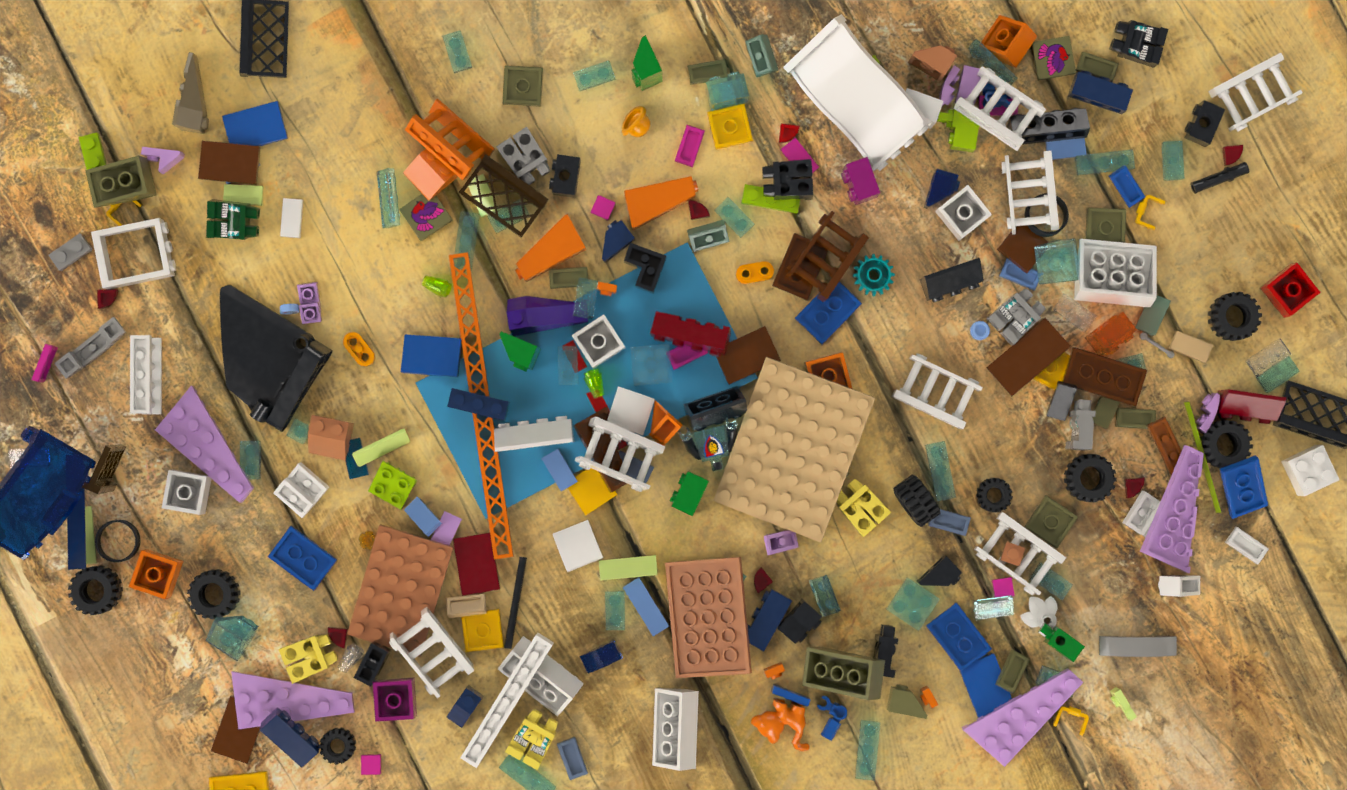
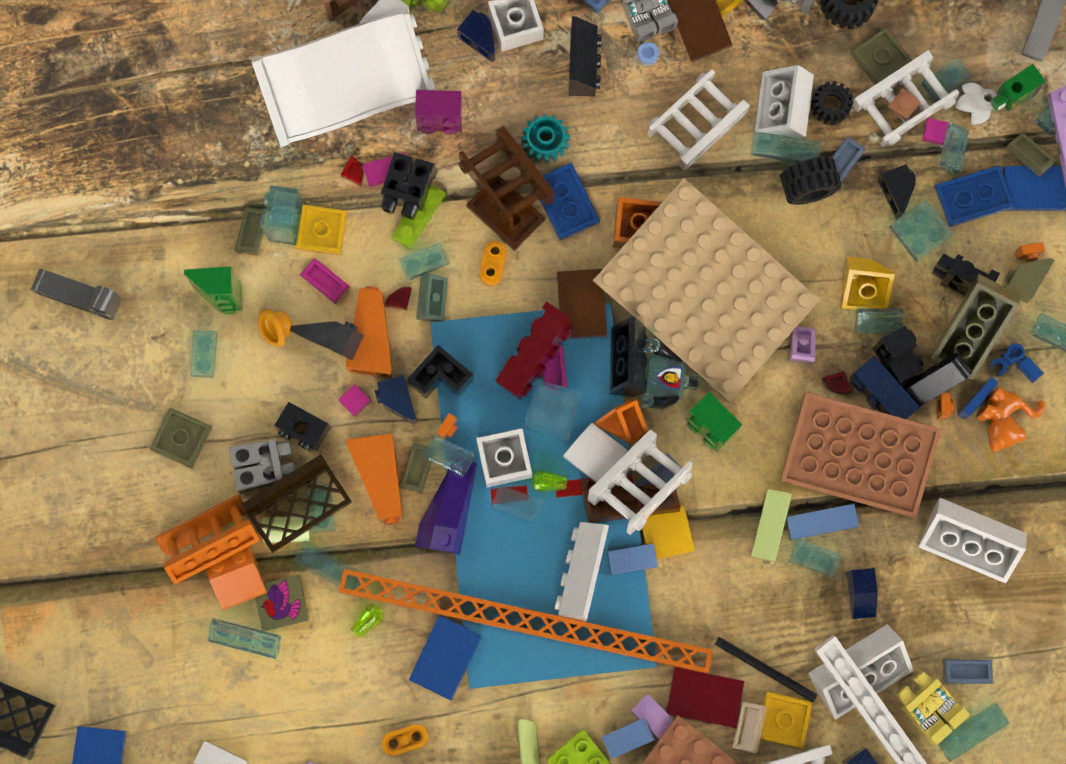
camera: 70 degrees left, 10 degrees down
(457, 51) = (110, 495): clear light blue plate -> none
(478, 404) = (524, 620): dark blue brick -> none
(520, 352) = (481, 548): green slope -> none
(577, 546) = (726, 572): white slope -> none
(642, 176) = (332, 335): none -> black slope
(761, 55) = (258, 168): sand green slope -> none
(791, 657) = (938, 379): none -> beam
(849, 575) = (866, 284): none -> yellow slope
(861, 501) = (797, 243): light yellow hips -> none
(978, 456) = (784, 102): none -> white slope

